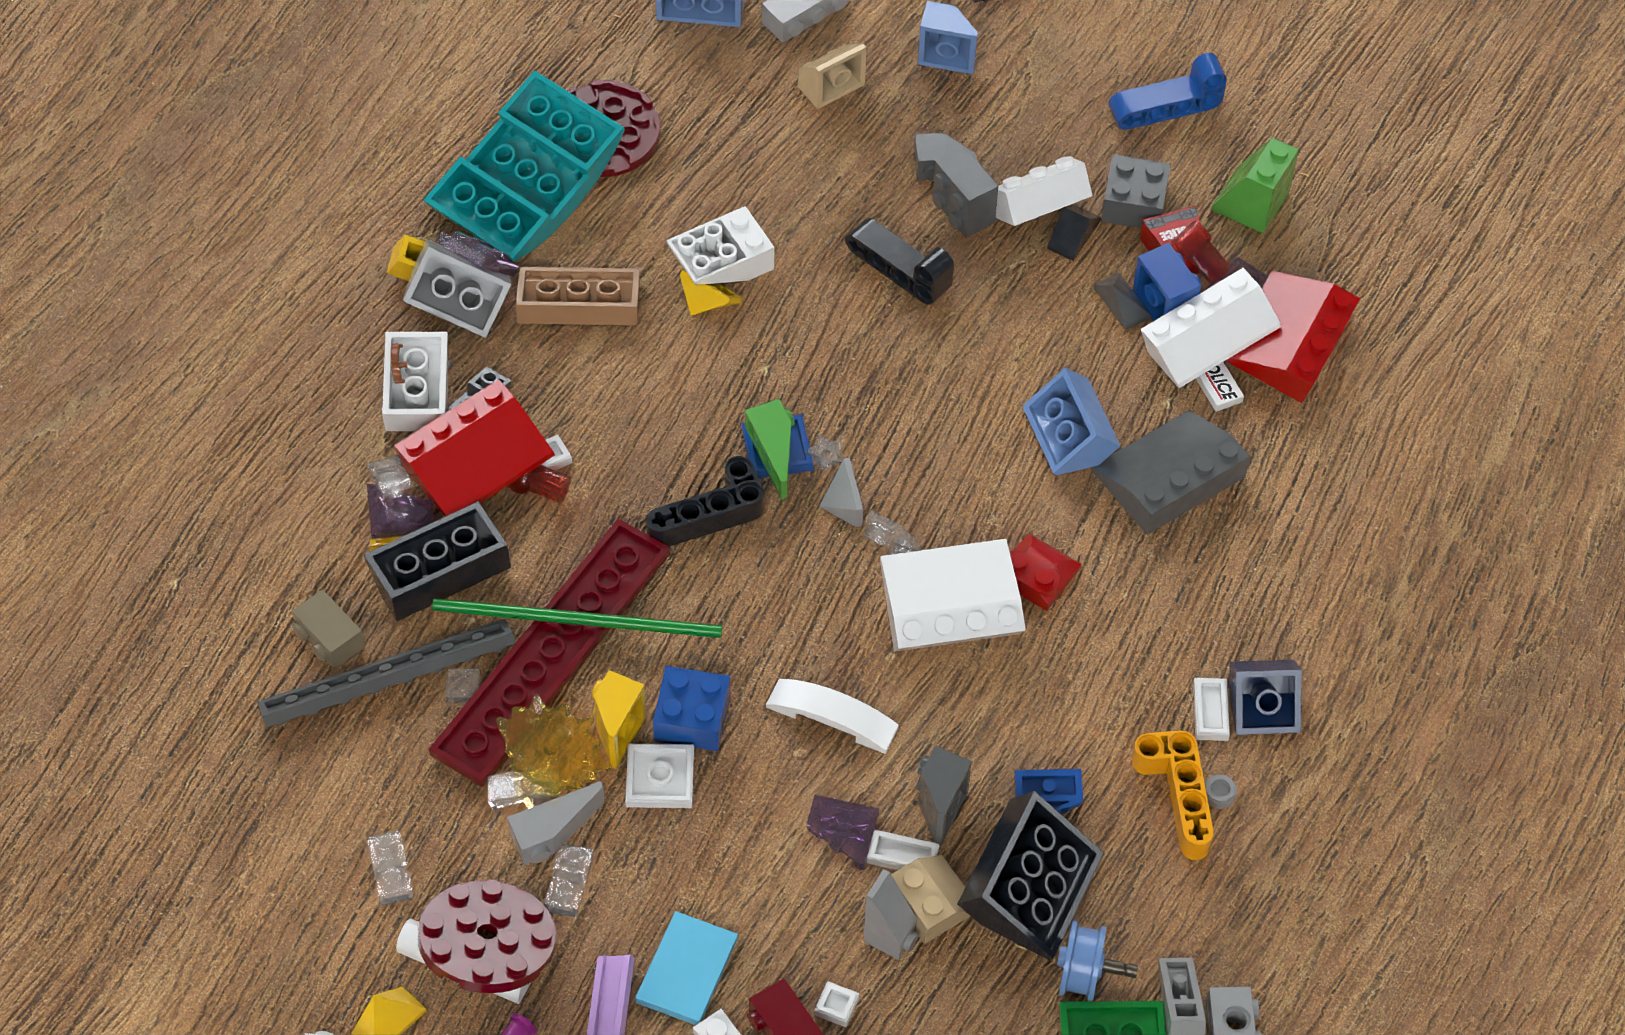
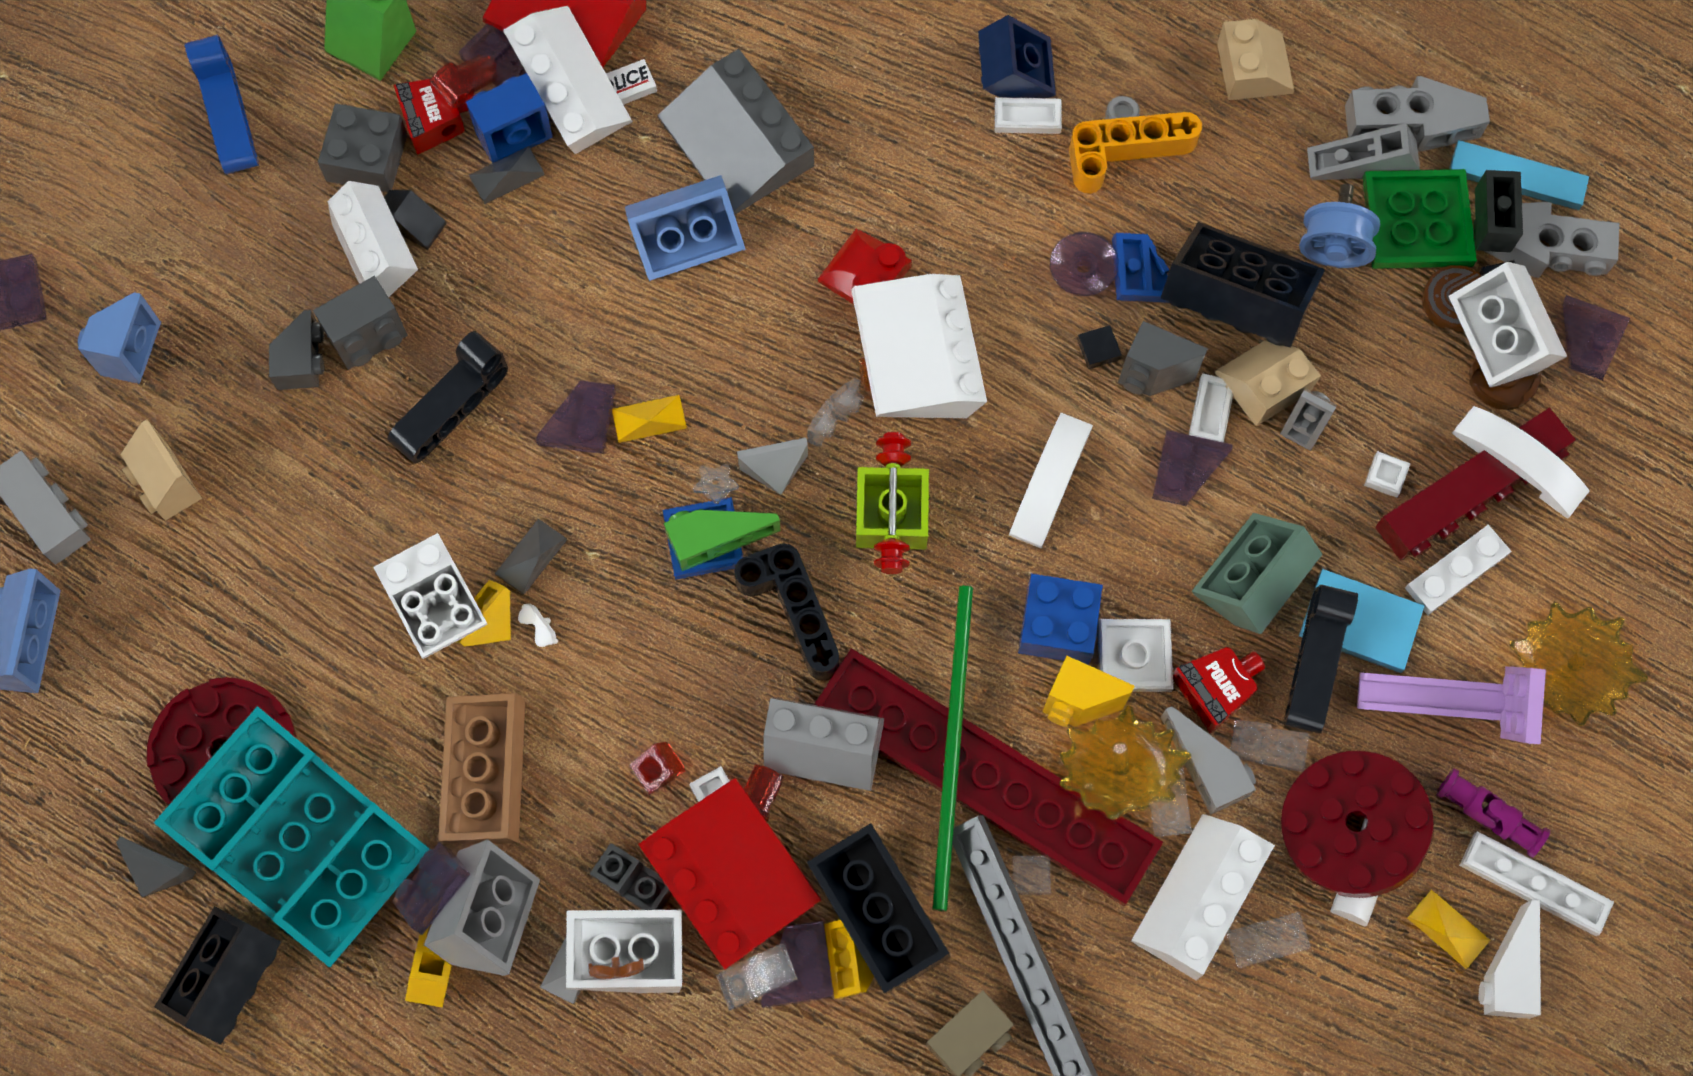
camera: 90 degrees left, 15 degrees up
(422, 134) = (217, 975): none -> black slope
(431, 815) = (1202, 895): none -> white slope
(508, 87) = (150, 869): none -> dark grey slope
(575, 416) = (657, 767): none -> clear red slope
(587, 520) = (822, 743): none -> light grey slope
(625, 836) = (1218, 684): none -> red torso
(647, 916) = (1319, 657): none -> black beam
(707, 324) = (544, 633): none -> white piece
(733, 876) = (1258, 571): none -> sand green slope
(763, 326) = (531, 556): none -> dark grey slope
(797, 575) = (892, 505): none -> lime brick
(888, 358) = (581, 419): none -> clear purple wing
(889, 408) = (649, 418): none -> yellow slope
(971, 751) = (1099, 347): none -> black tile
(1048, 732) = (1085, 250): none -> dish
(1285, 909) = (1253, 60): none -> tan slope

